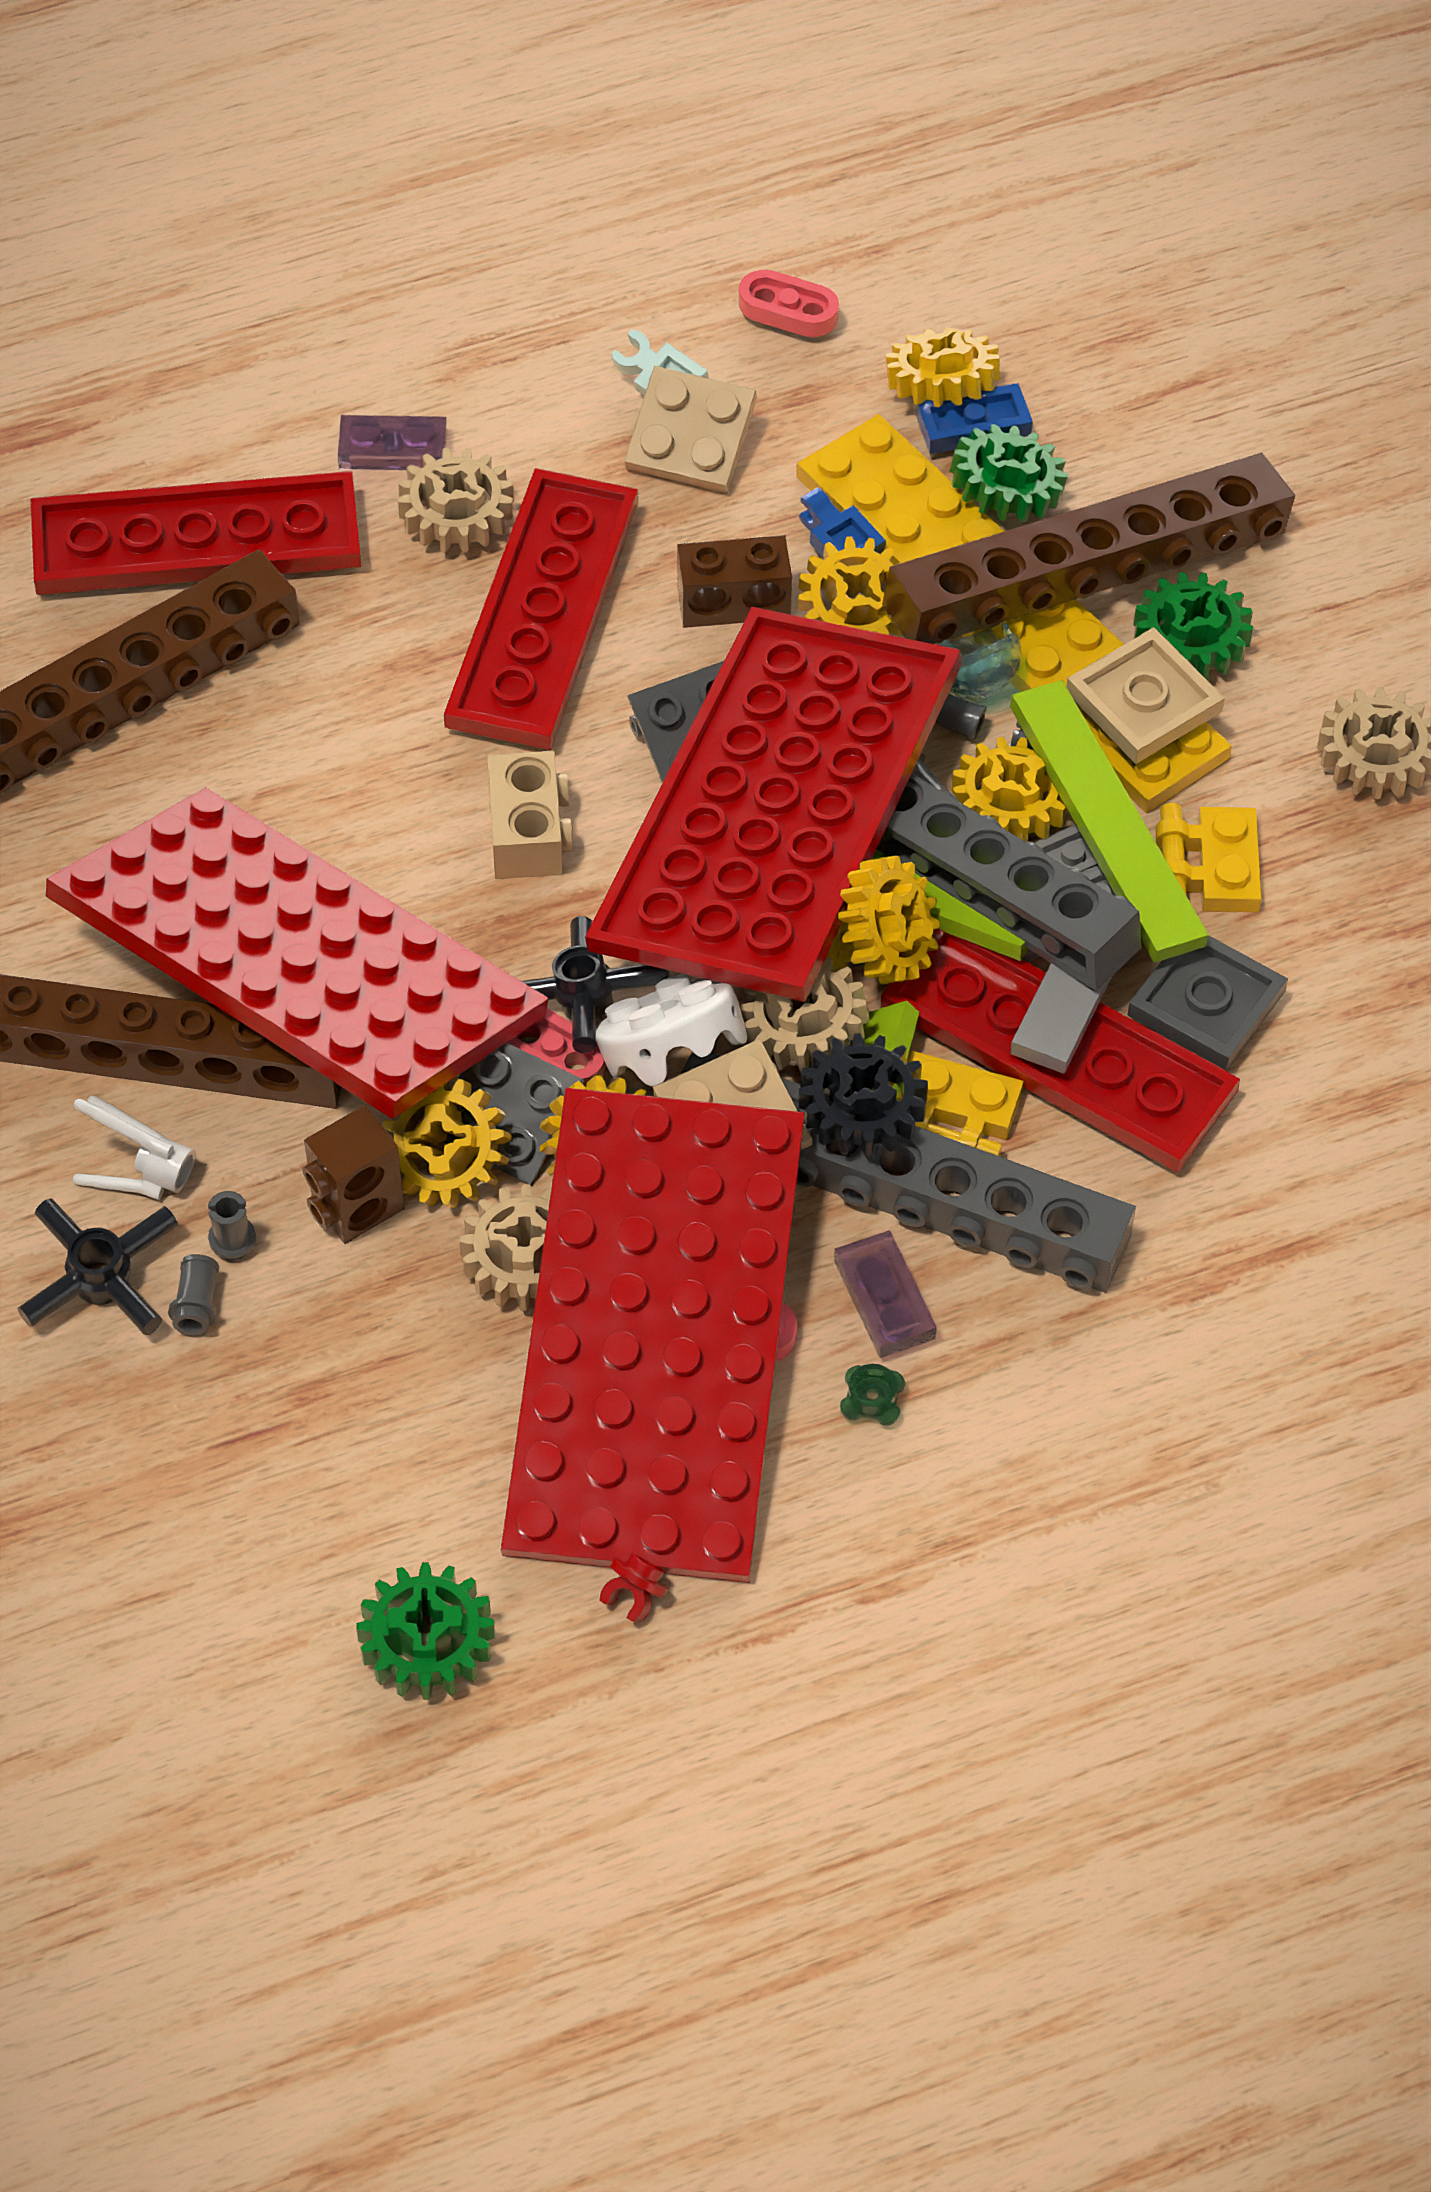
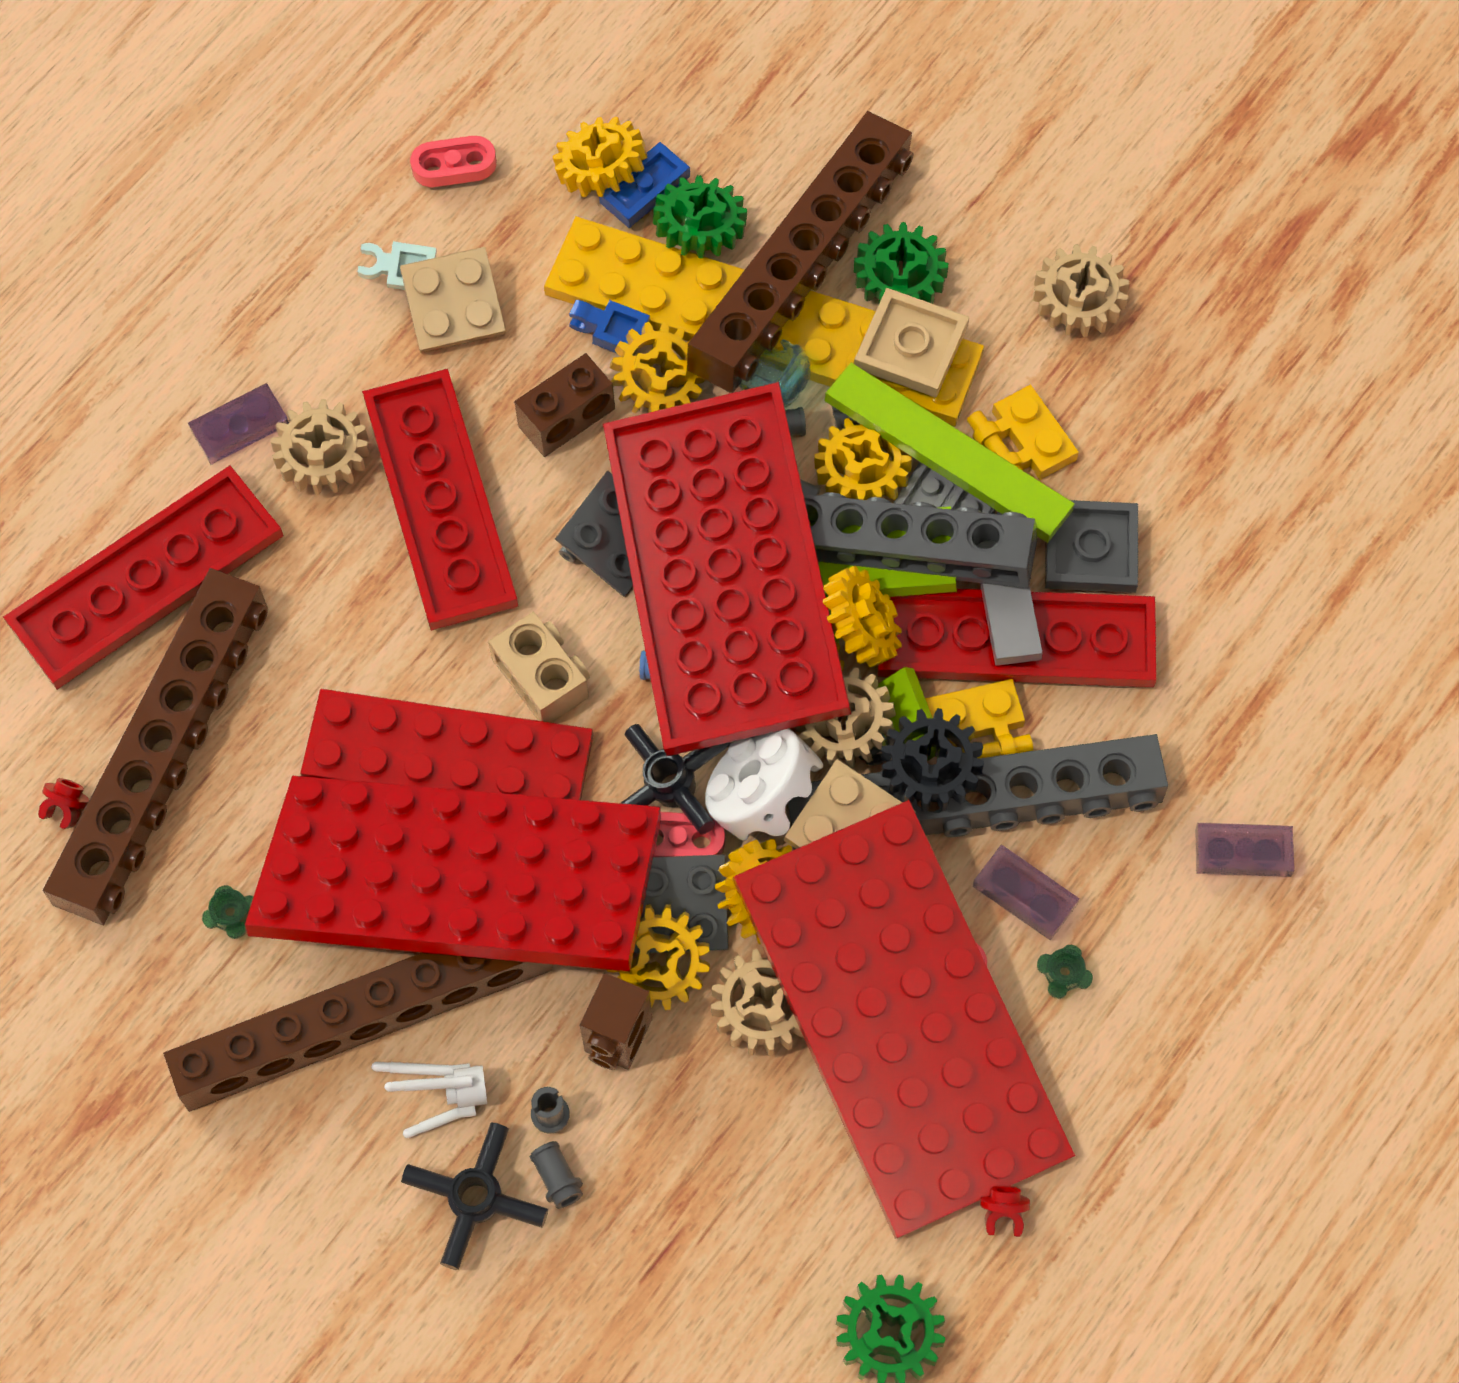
camera: 30 degrees left, 10 degrees up
(40, 869) = (224, 899): none -> clear green plate
(379, 841) = (443, 747): none -> red plate
(1159, 1380) = (1244, 849): none -> plate

